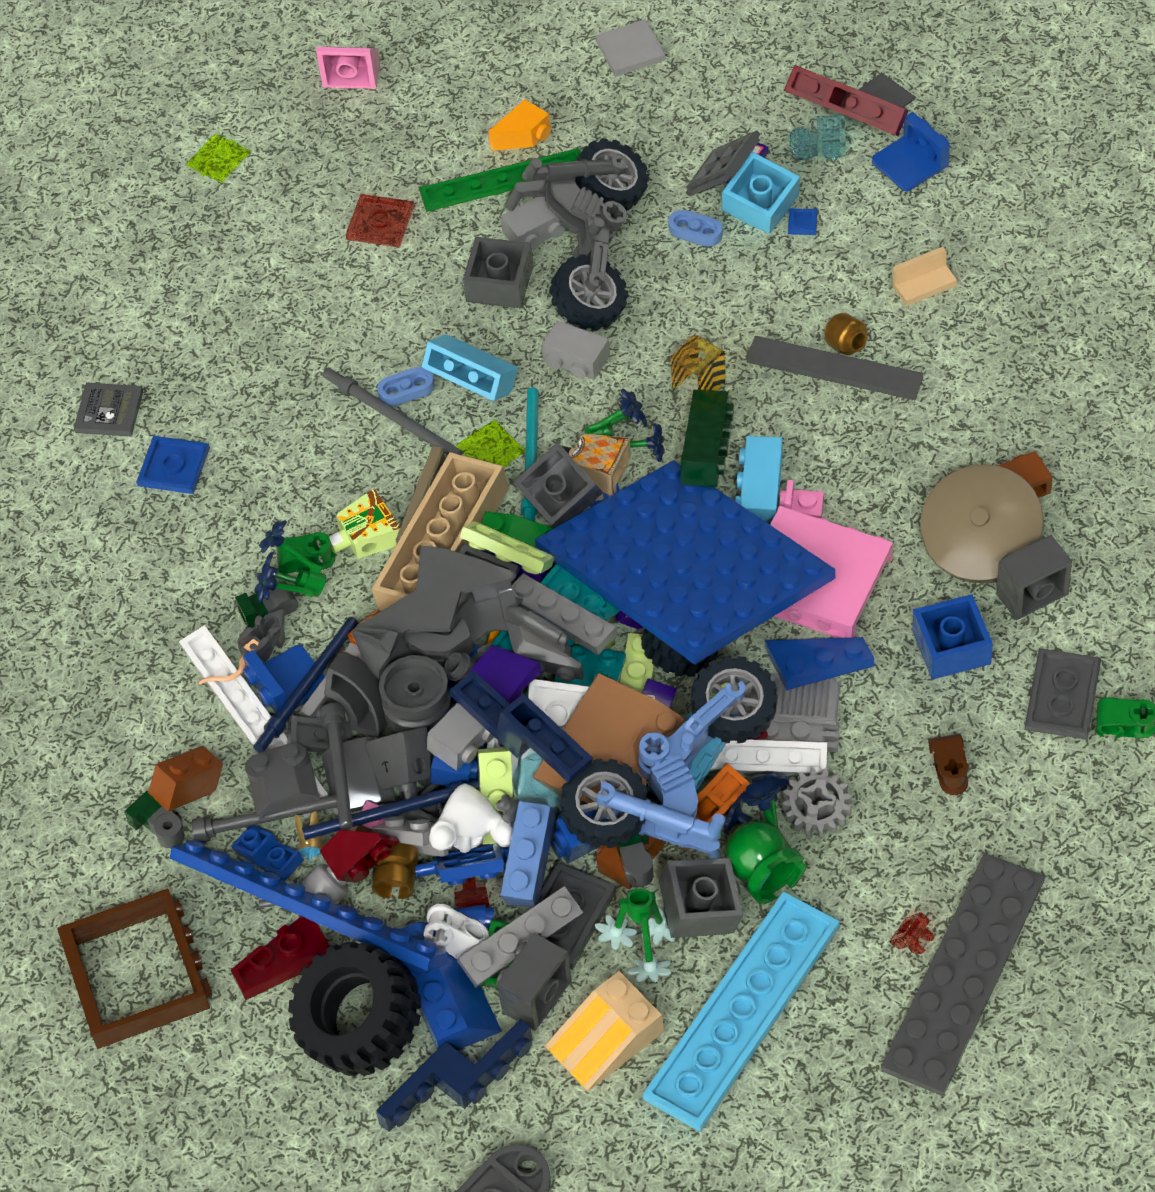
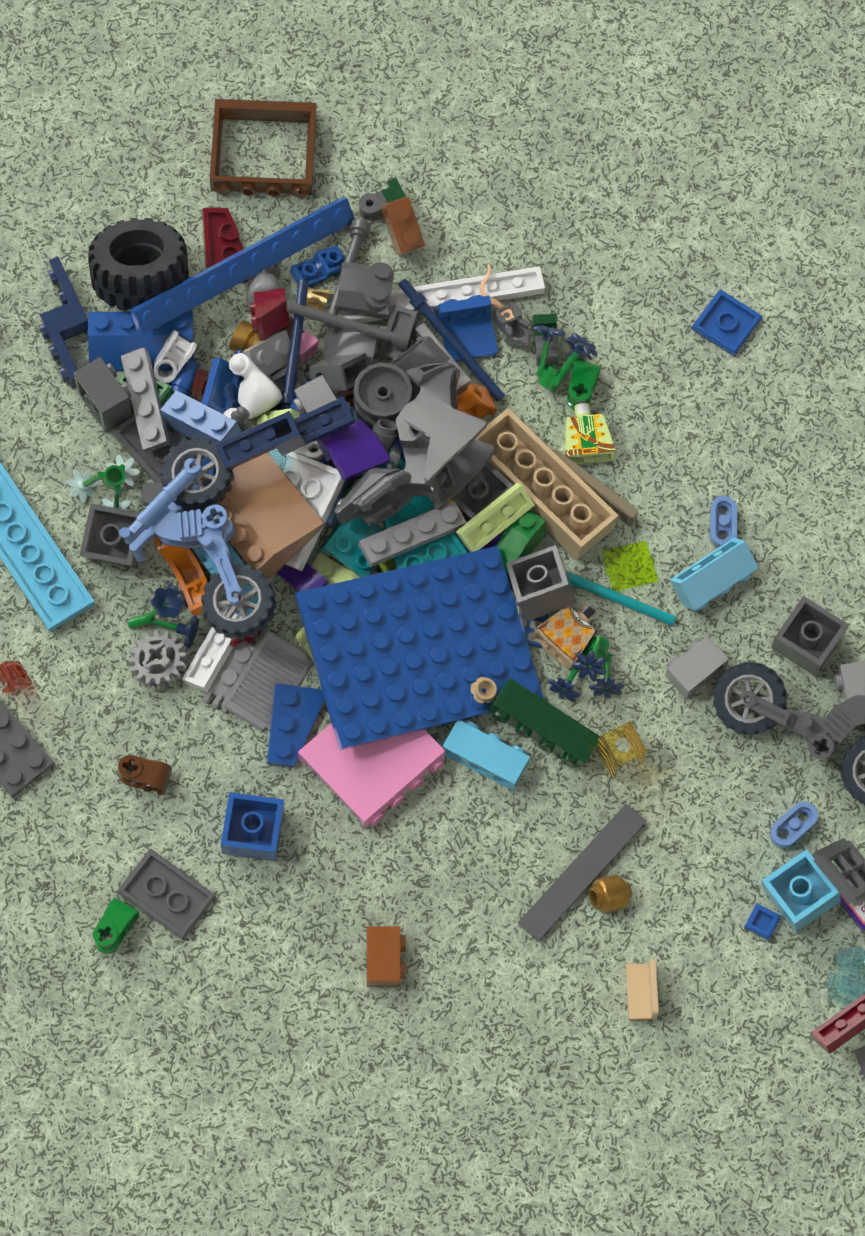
camera: 105 degrees right, 15 degrees up
(108, 409) = (808, 293): dark grey tile -> none
(350, 387) = (745, 480): dark grey bar -> none
(605, 1031) = (47, 435): tan slope -> none
(701, 487) = (488, 685): none -> tan plate
(763, 859) = (124, 592): green tile -> none
(803, 500) = (450, 779): bright pink bracket -> none
(915, 155) = (791, 1048): blue bracket -> none
(979, 519) = (350, 903): dark tan dish -> none
(1033, 577) = (273, 916): dark grey brick -> none

